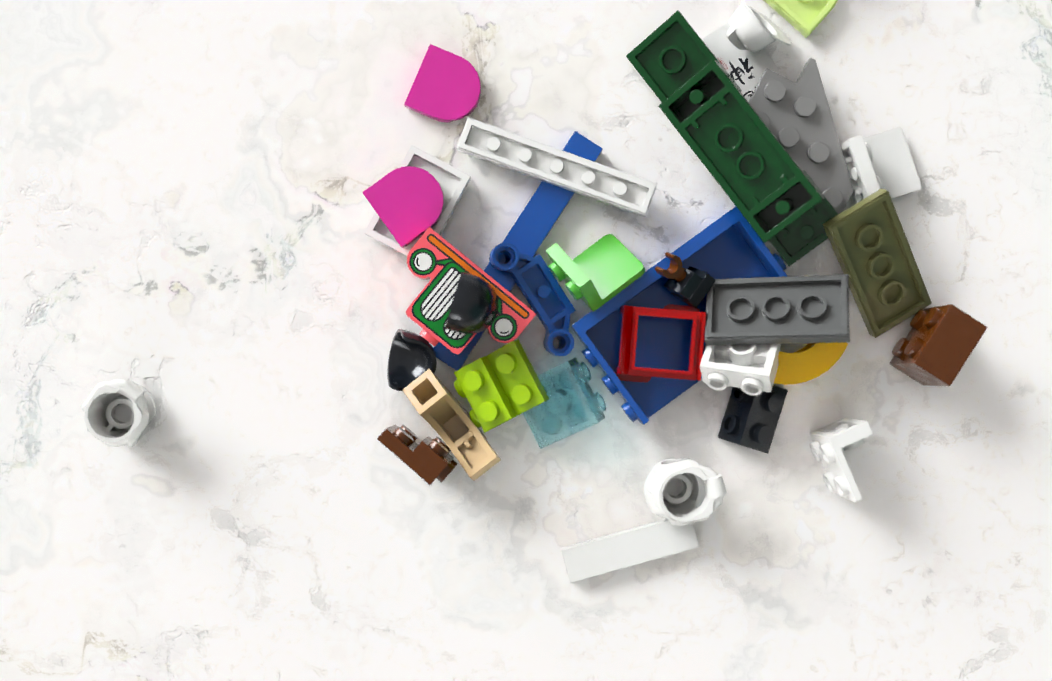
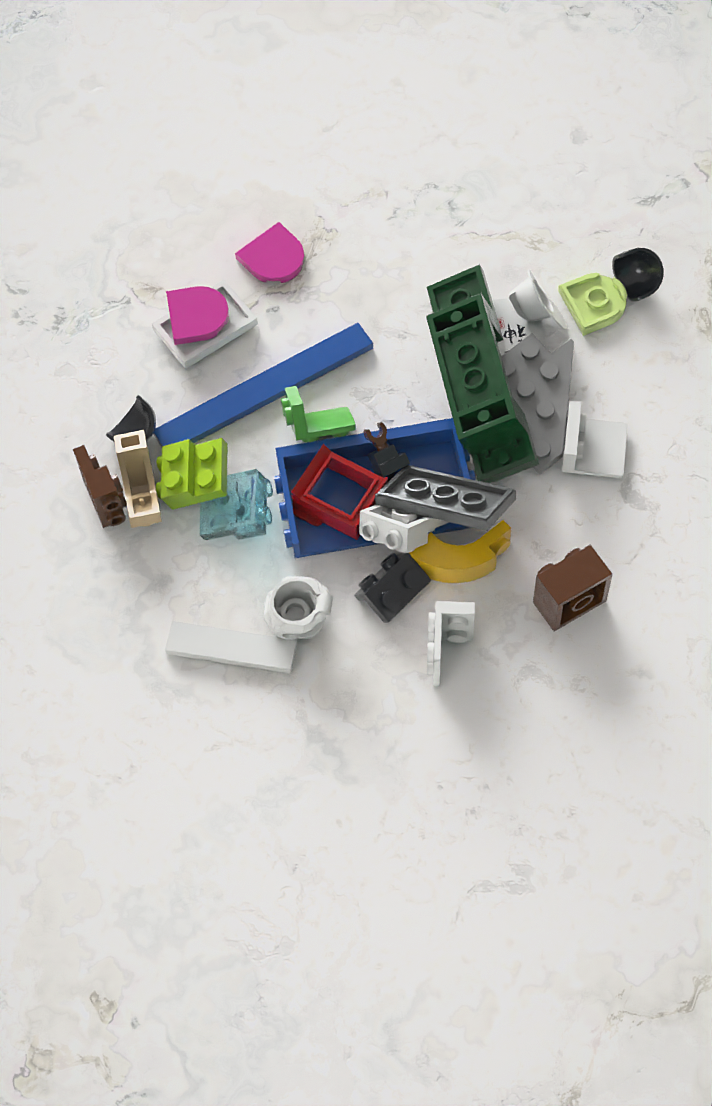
camera: 25 degrees right, 25 degrees down
(442, 263) = (198, 393): brick -> none
(472, 305) = (200, 390): black helmet -> none
(542, 294) = (265, 416): blue plate -> none
(556, 167) = (329, 340): white tile -> none
(877, 262) = (550, 502): olive tile -> none

